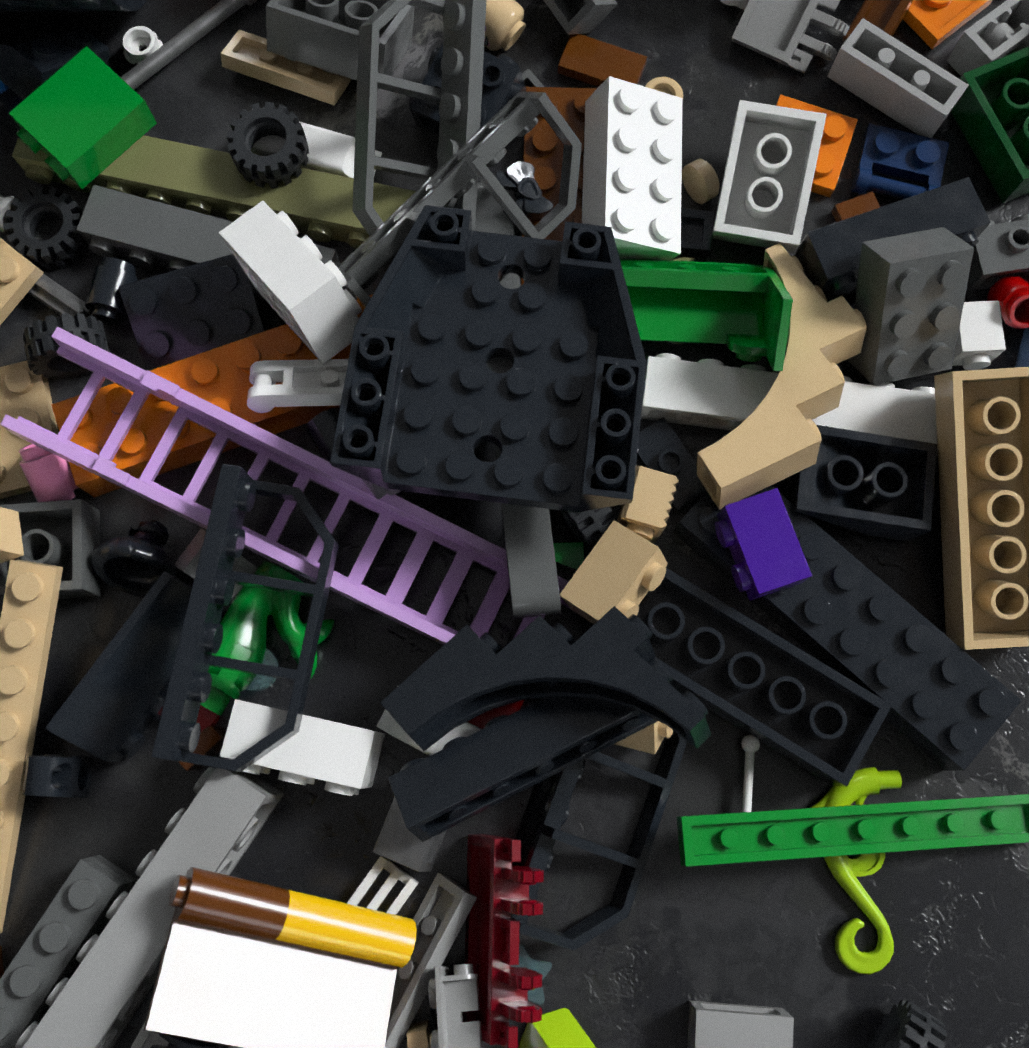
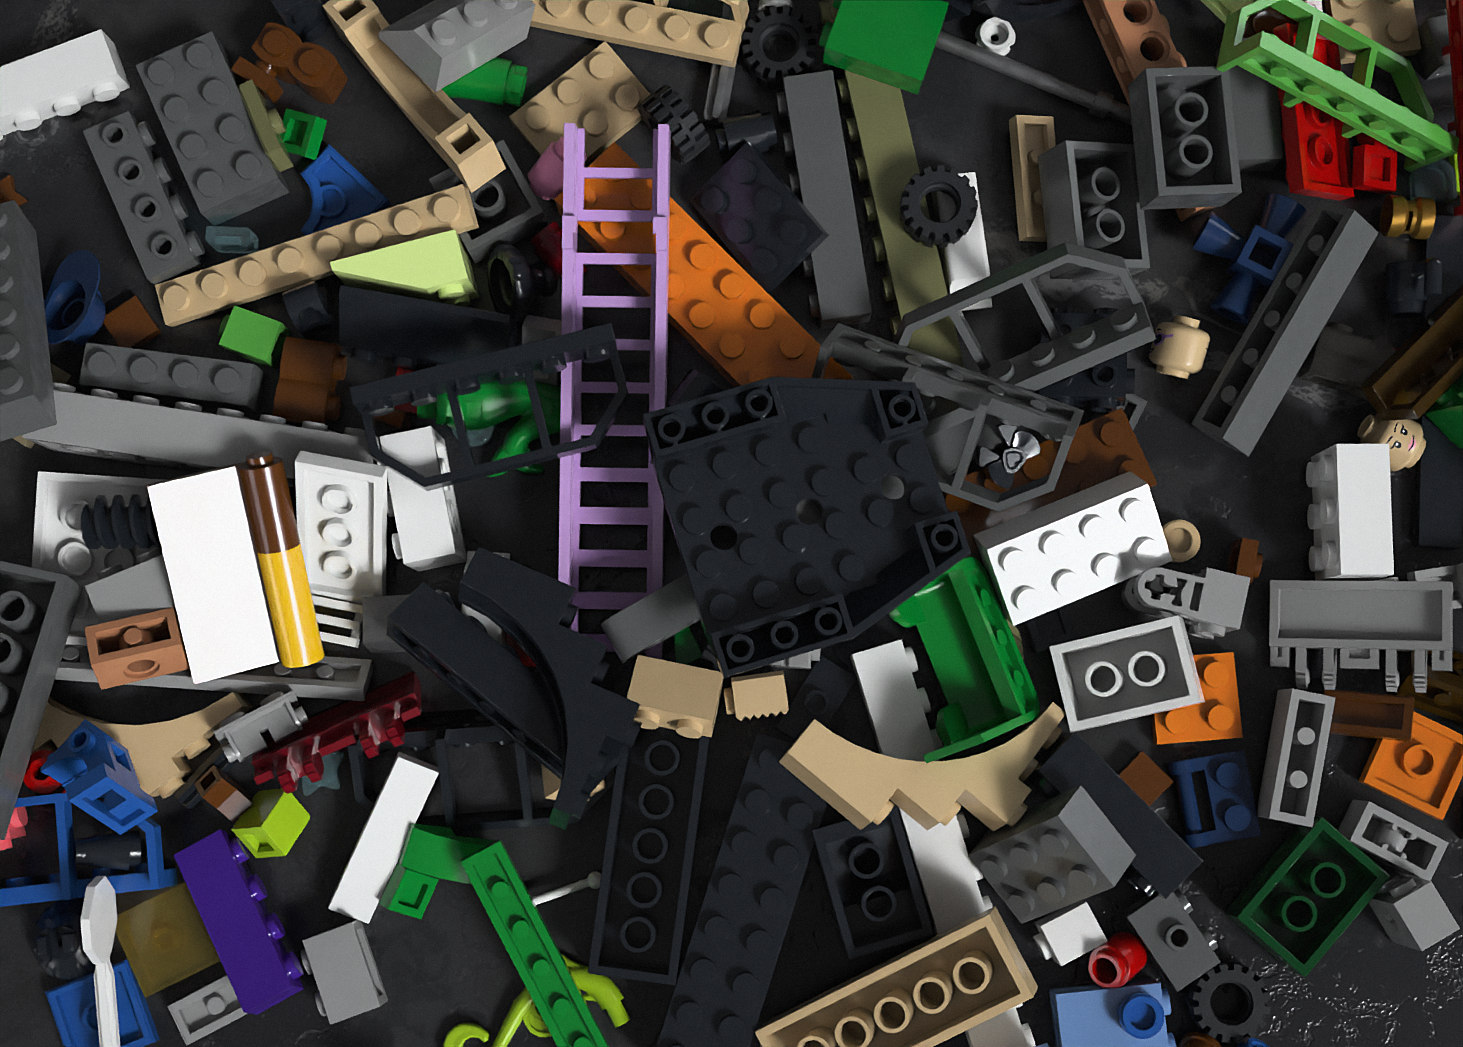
camera: 70 degrees right, 5 degrees up
(54, 849) = (253, 336): none -> bright green brick
(69, 643) = (423, 268): none -> yellowish green slope
(127, 510) = (549, 247): none -> dark red cone
(127, 810) = (309, 381): none -> reddish brown brick
(289, 836) = (342, 525): none -> white plate
(294, 279) = (808, 298): white brick -> none
(303, 383) = (726, 350): white plate -> none
(596, 60) = (1185, 469): reddish brown tile -> none
(623, 938) = (383, 837): none -> white tile
(662, 885) = (438, 851): none -> green slope
(686, 936) = (408, 892): none -> green plate
(700, 181) = (1105, 614): tan tile -> none
(706, 51) = (1245, 559): none -> reddish brown plate
(732, 74) = (1206, 601): none -> light grey brick
(762, 545) = (760, 812): dark purple brick -> none

